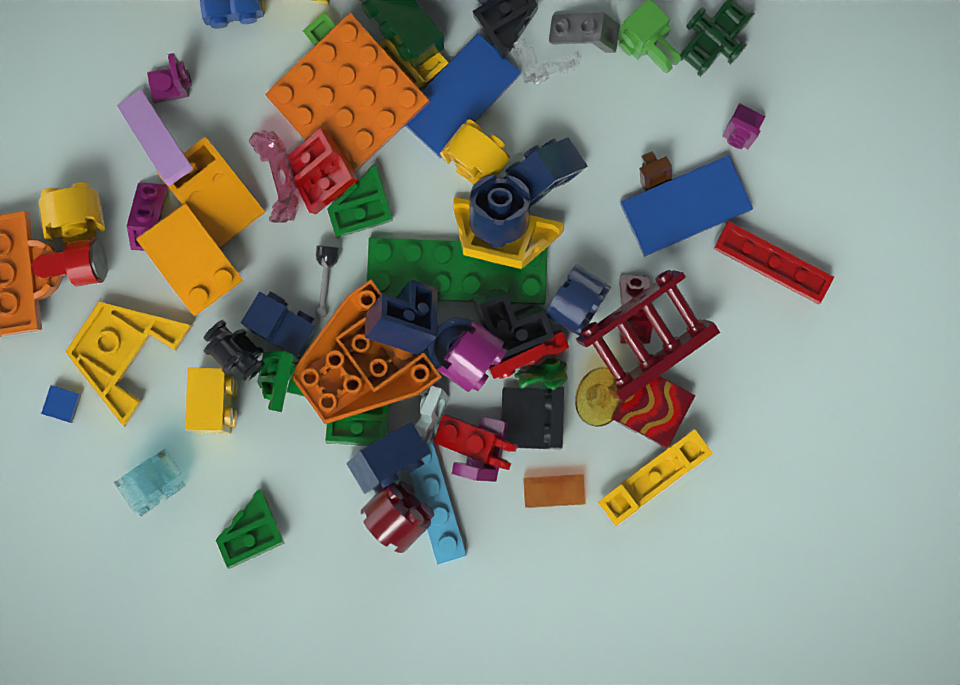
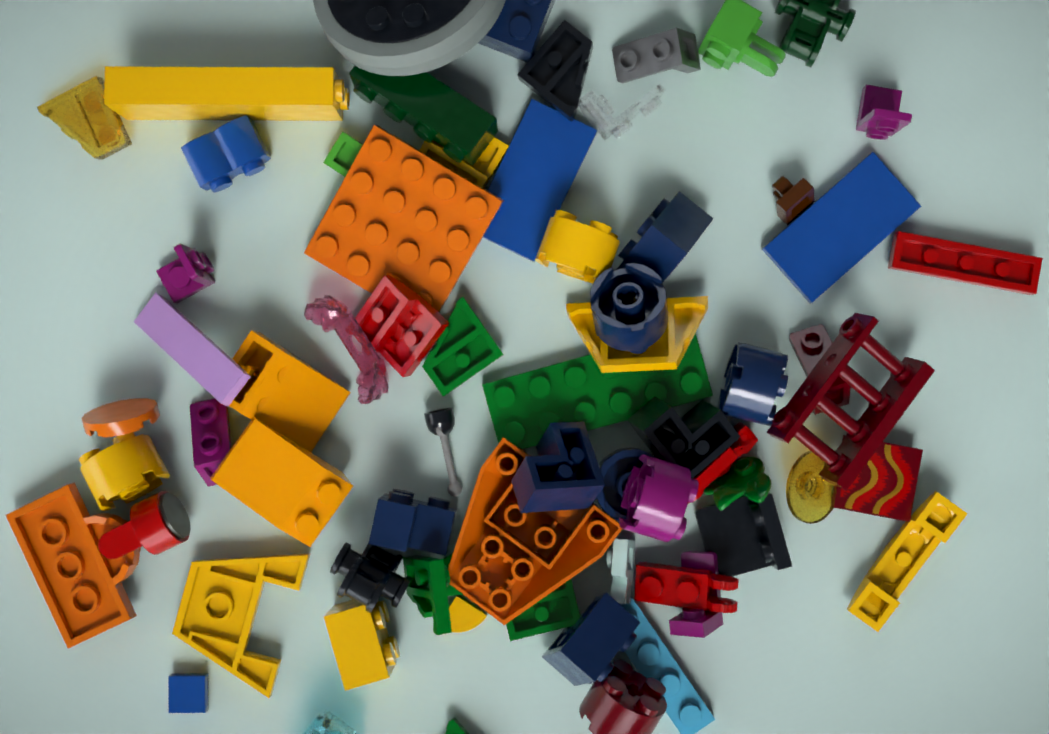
camera: 15 degrees left, 5 degrees up
(82, 172) = (120, 417): none -> orange tile
(294, 412) = (465, 615): none -> yellow tile
(554, 491) = (791, 611): clear orange plate -> none

